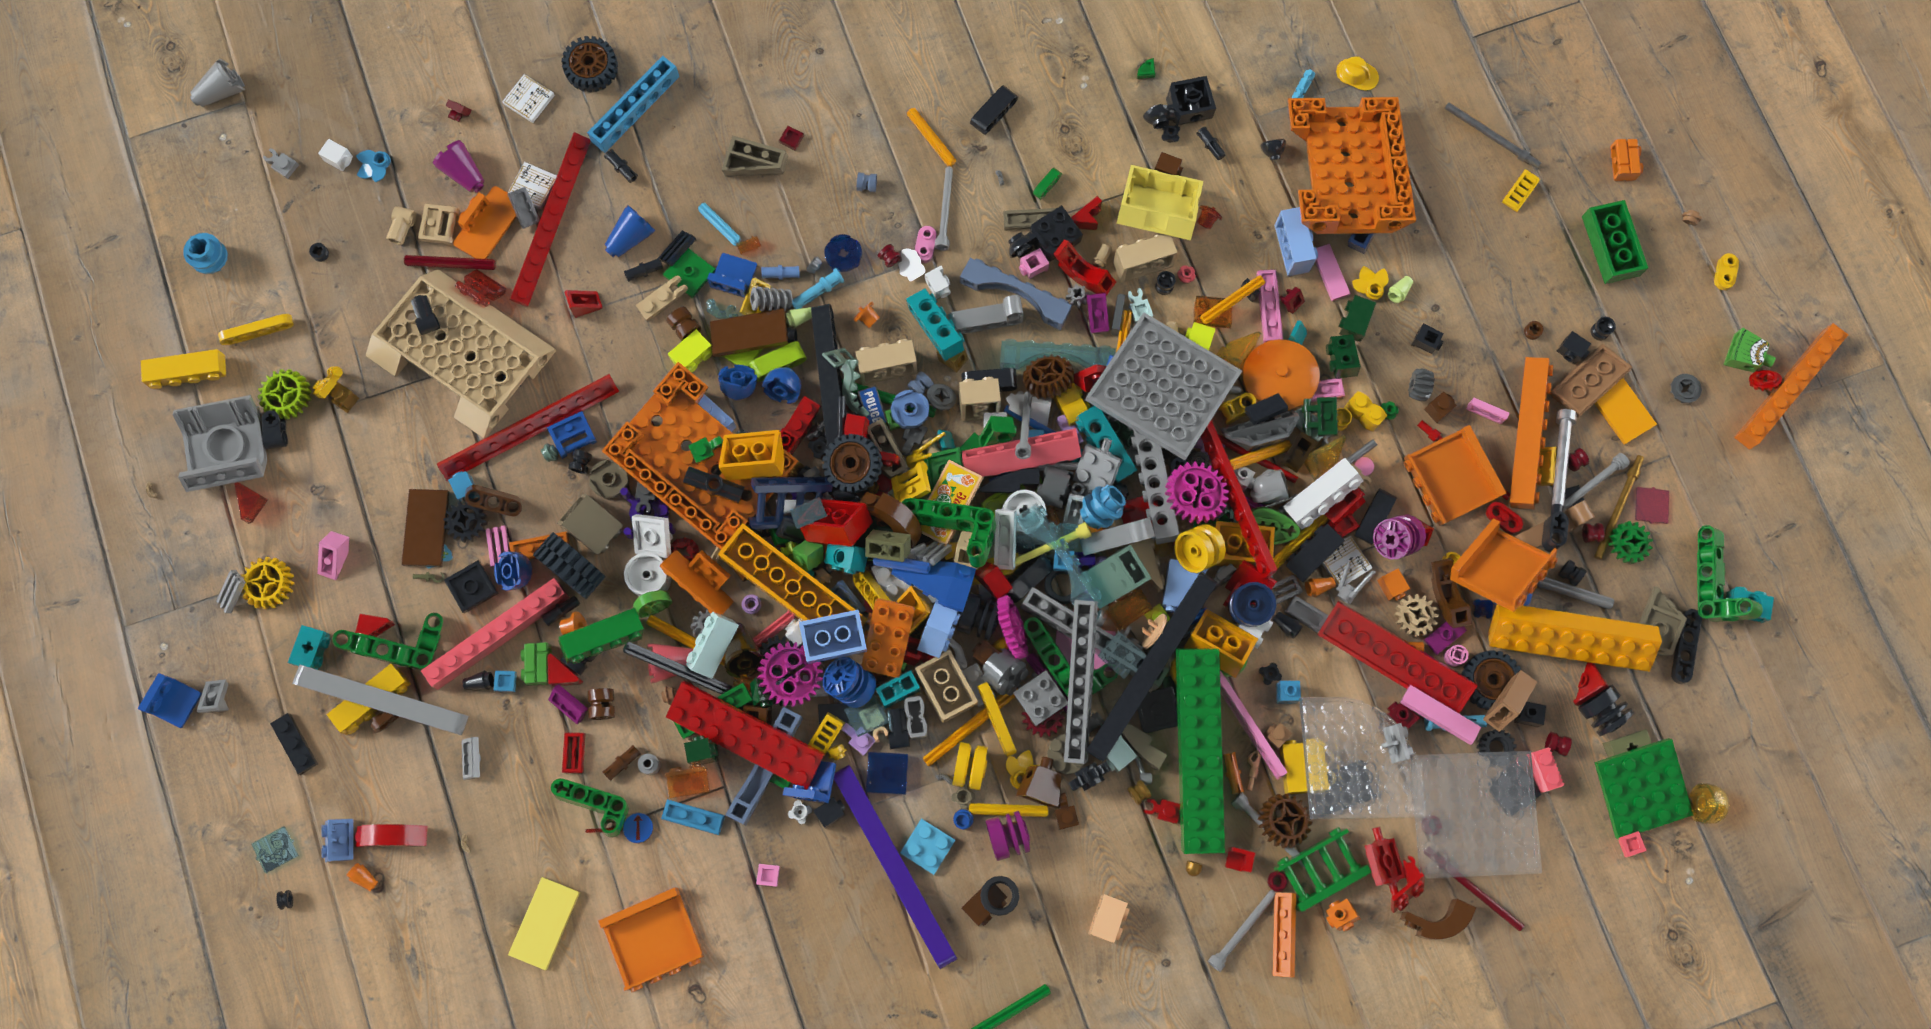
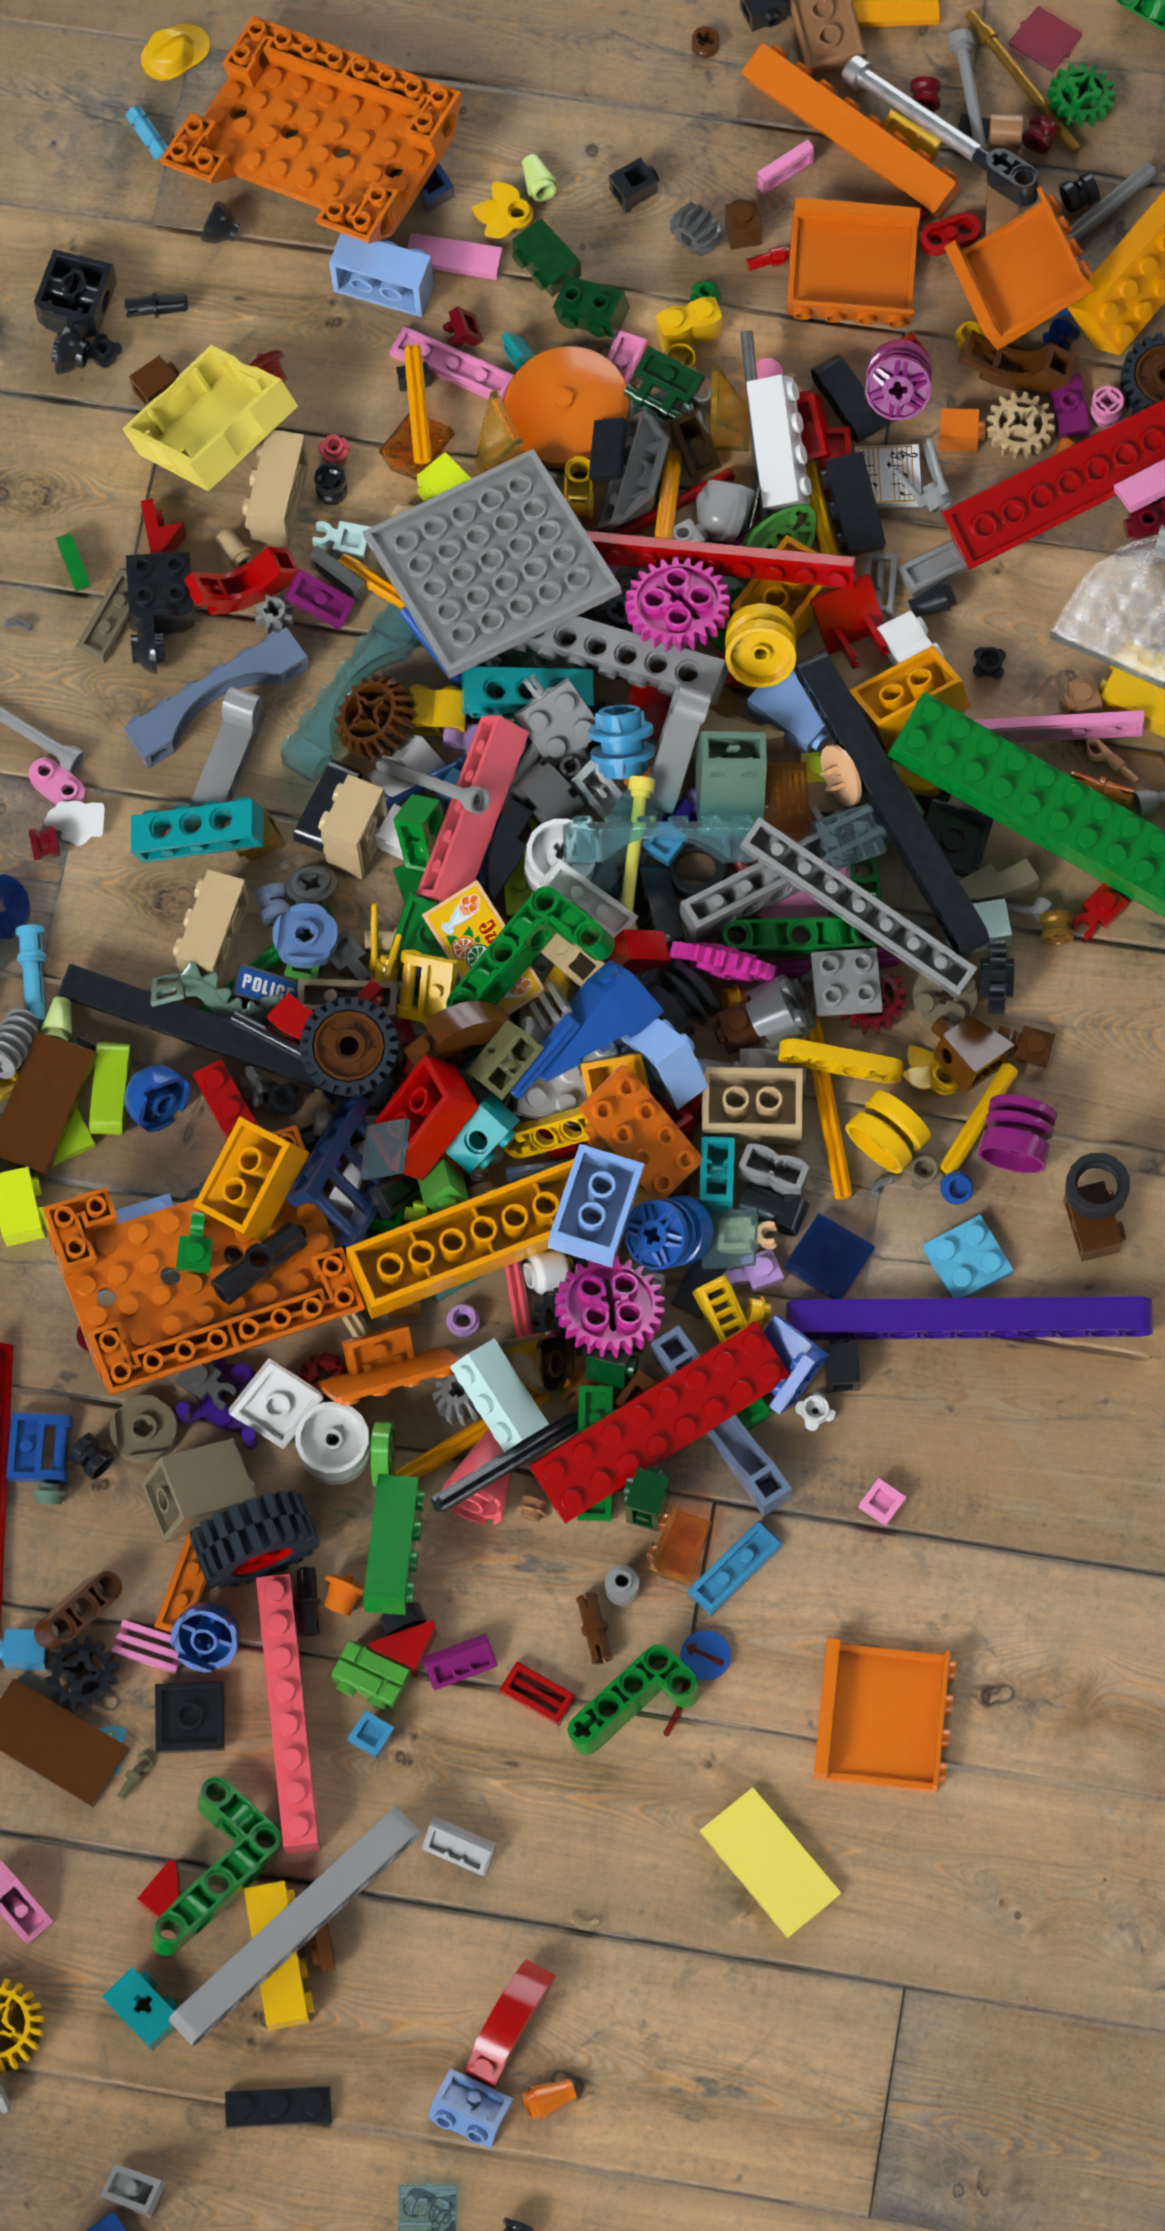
camera: 55 degrees left, 5 degrees down
(479, 681) = (346, 1777): black cone -> none
(601, 704) = (489, 1611): reddish brown wheel -> none
(737, 382) = (110, 1158): blue cylinder -> none
(867, 315) = (119, 923): orange piece -> none
(938, 283) = (131, 796): white brick -> none
(946, 441) = (387, 917): teal slope -> none
(1034, 258) = (187, 638): bright pink brick -> none
(1088, 377) = (412, 664): red slope -> none
(1224, 574) = (811, 638): light grey plate -> none
(1264, 604) = (881, 622): dark blue wheel -> none
(1288, 692) = (1029, 651): dark azure brick -> none
(1317, 586) = (902, 529): orange cone -> none

